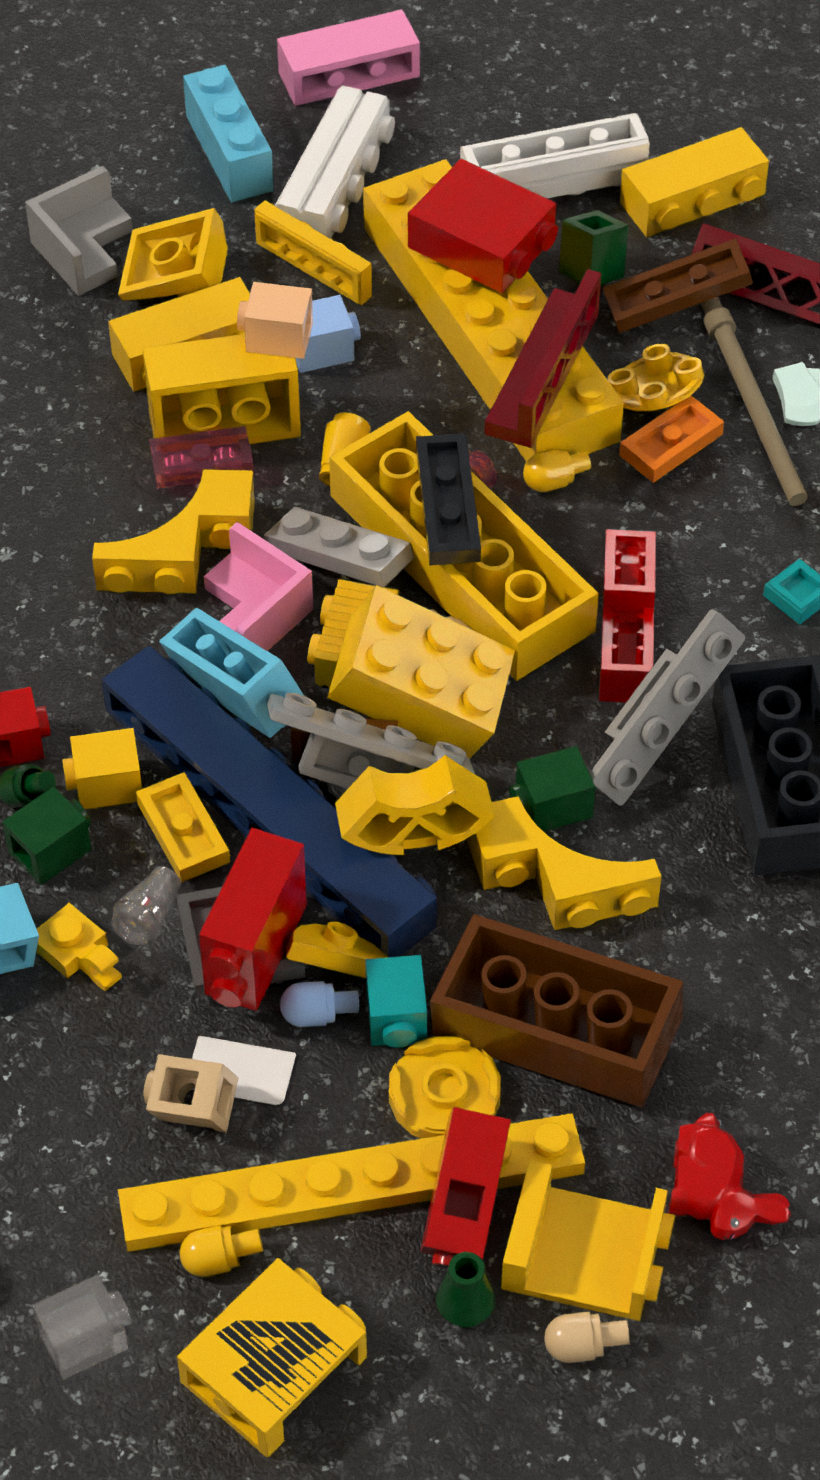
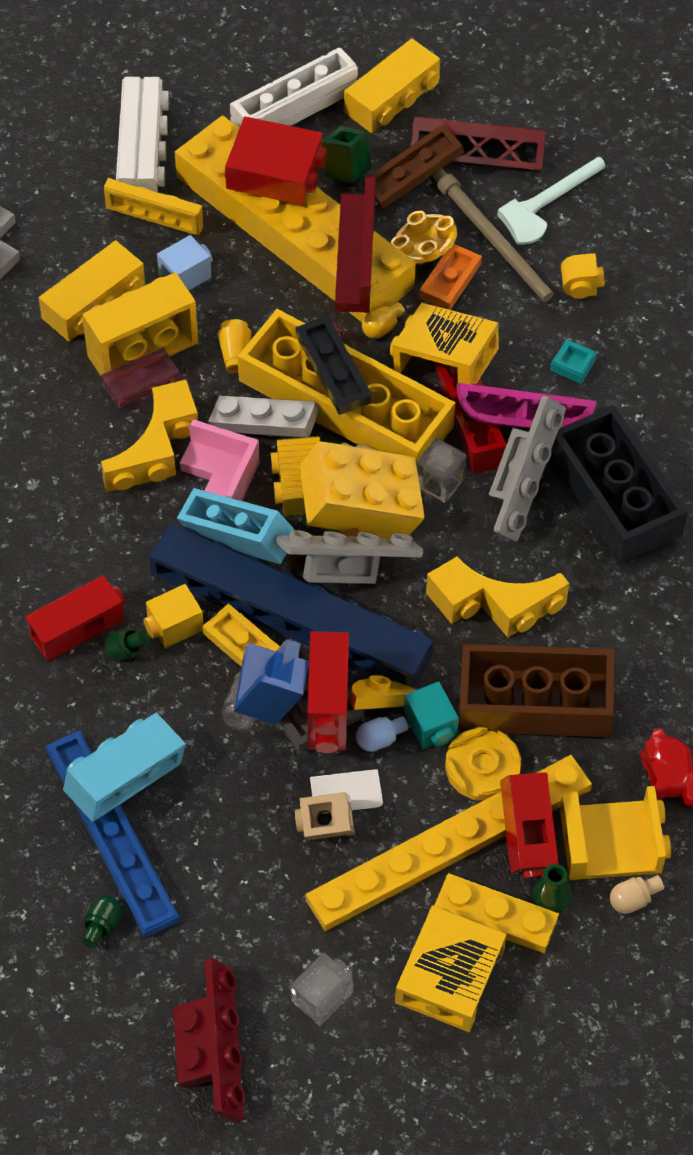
camera: 20 degrees left, 5 degrees up
(48, 834) = (155, 673): dark green brick -> none
(74, 943) = (208, 741): yellow plate -> none
(175, 257) = (59, 237): yellow slope -> none
(181, 885) = (270, 681): none -> blue panel
(217, 1250) = (385, 912): yellow cylinder -> none
(228, 133) = (56, 132): medium azure brick -> none
(277, 320) = (170, 269): light nougat brick -> none
(348, 54) = (115, 52): bright pink brick -> none
(390, 1310) = (520, 920): none -> yellow plate
(414, 809) = (397, 585): yellow brick -> none
(549, 680) = (441, 470): none -> clear brick
(555, 788) = (474, 542): dark green brick -> none
(631, 512) = (447, 339): none -> yellow panel
(672, 619) = (515, 407): none -> dark pink brick

